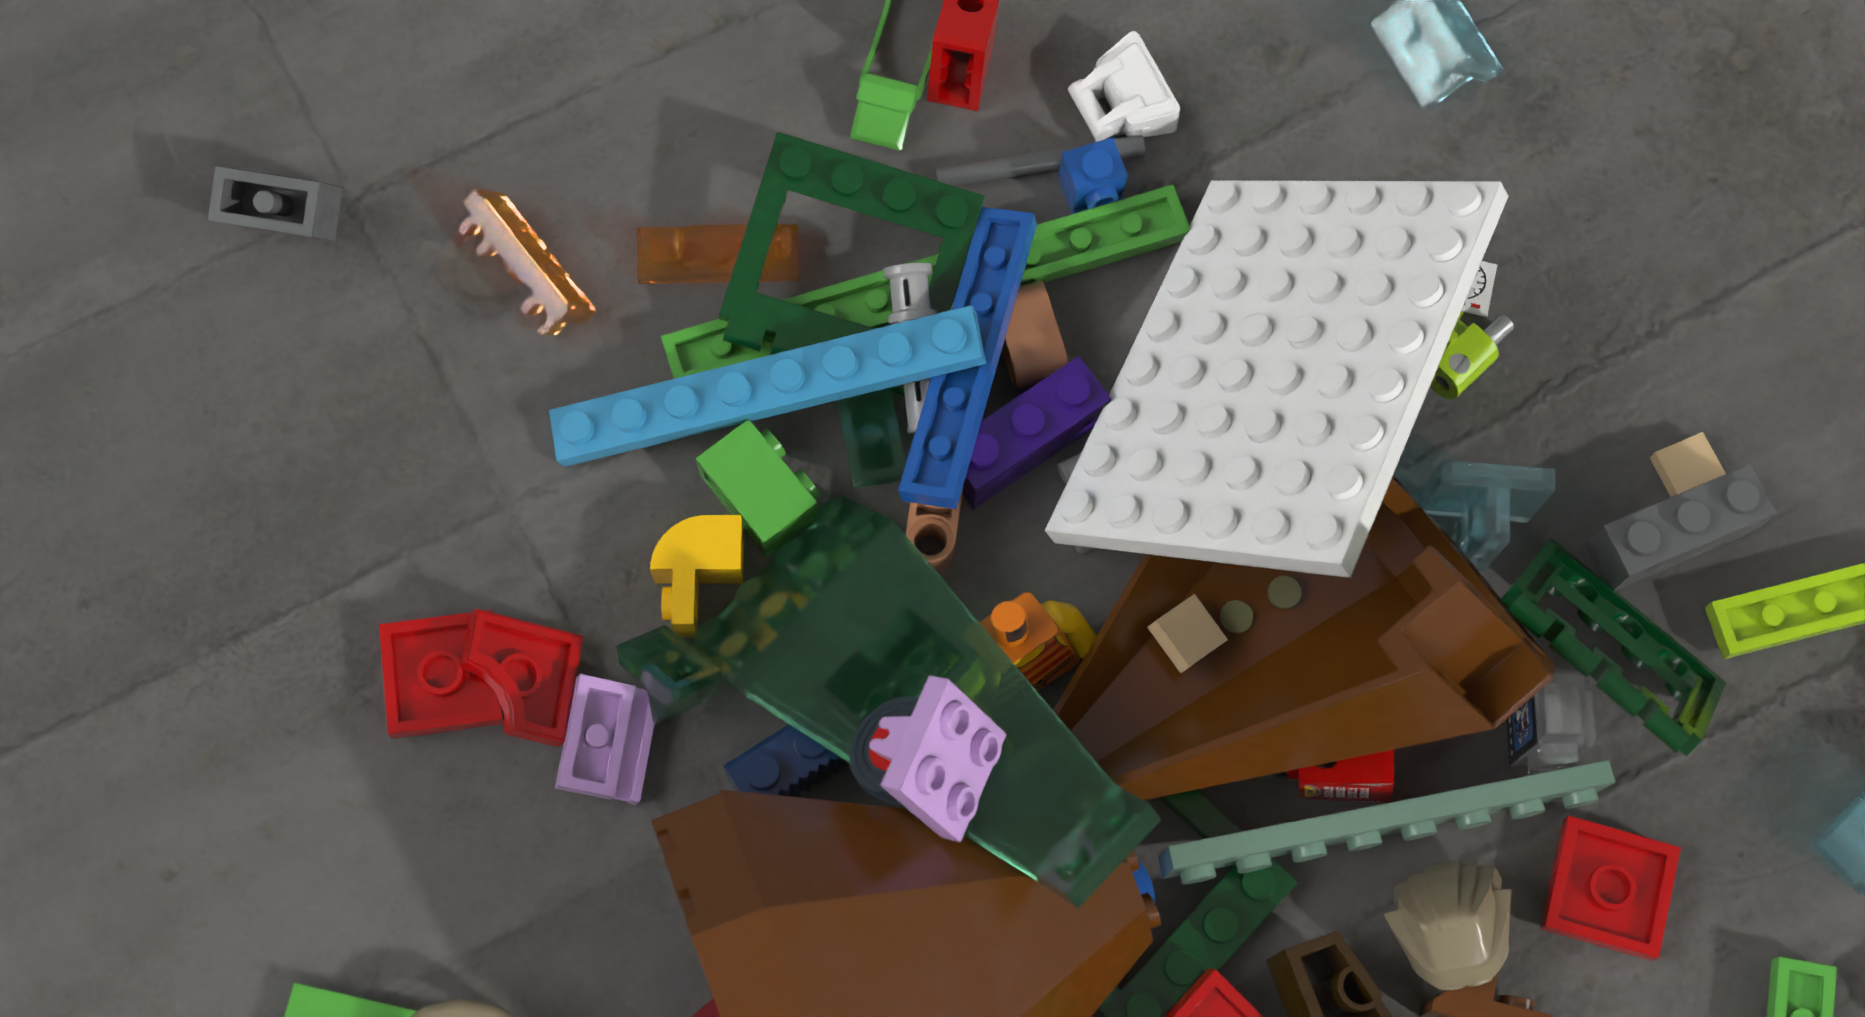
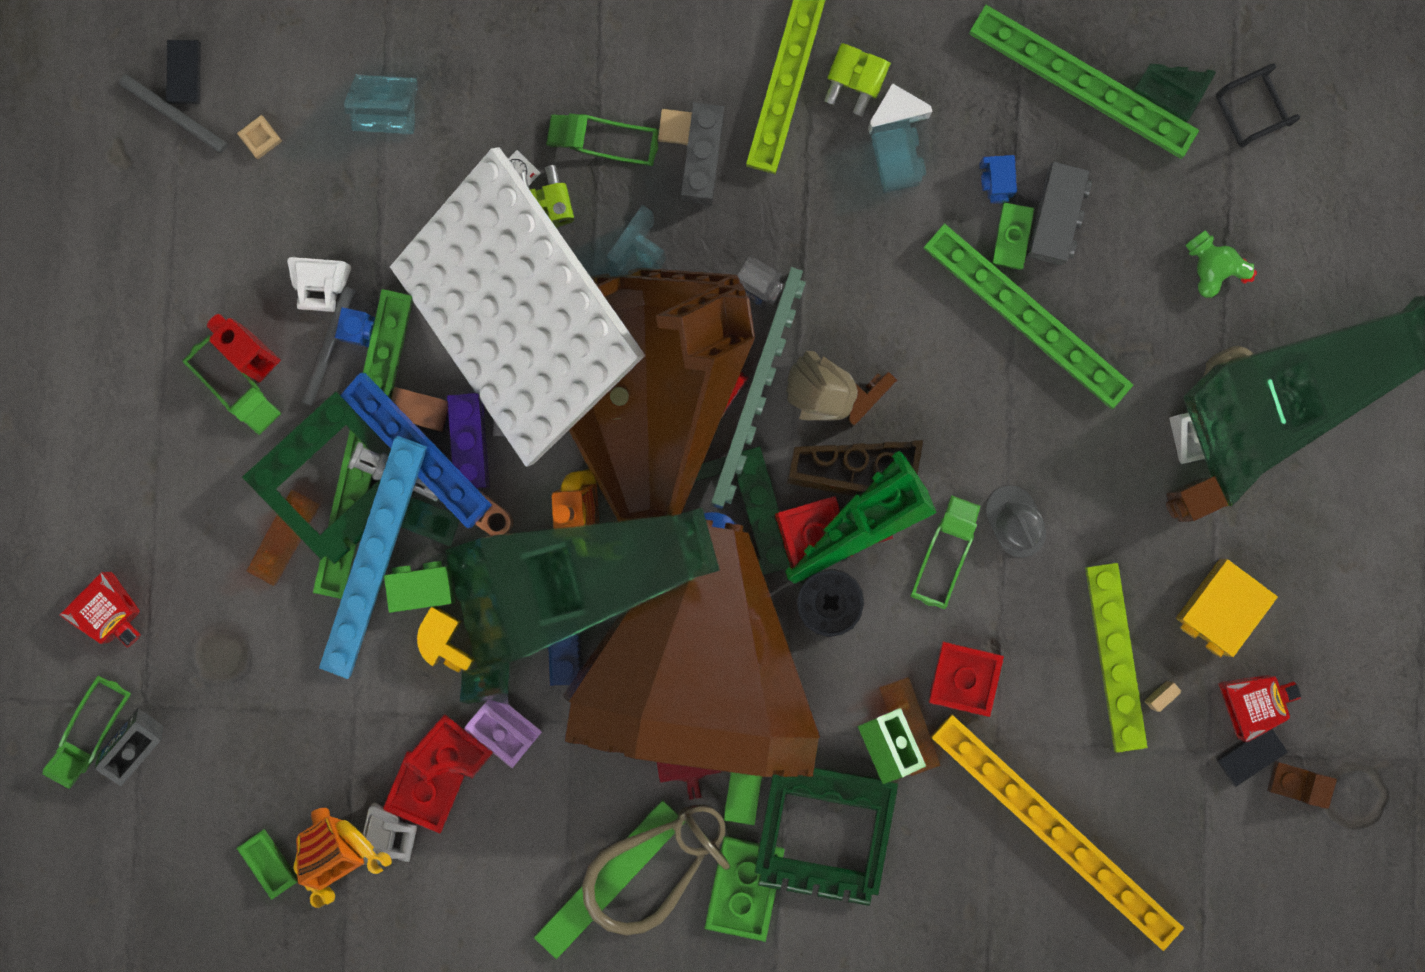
camera: 55 degrees left, 15 degrees up
(199, 505) = (268, 864): none -> bright green tile
(211, 137) = (71, 761): none -> bright green piece
(266, 579) = (330, 852): none -> torso
(334, 645) = (381, 830): none -> light grey piece
(463, 65) = (104, 611): none -> red torso
(526, 260) = (231, 636): clear orange plate -> none
(928, 755) = (609, 596): lavender plate -> none
(1187, 633) = (615, 427): tan tile -> none
(1580, 317) = (570, 129): none -> bright green piece
(1610, 888) = (848, 302): red plate -> none
(1642, 641) = (736, 210): dark green hinge -> none

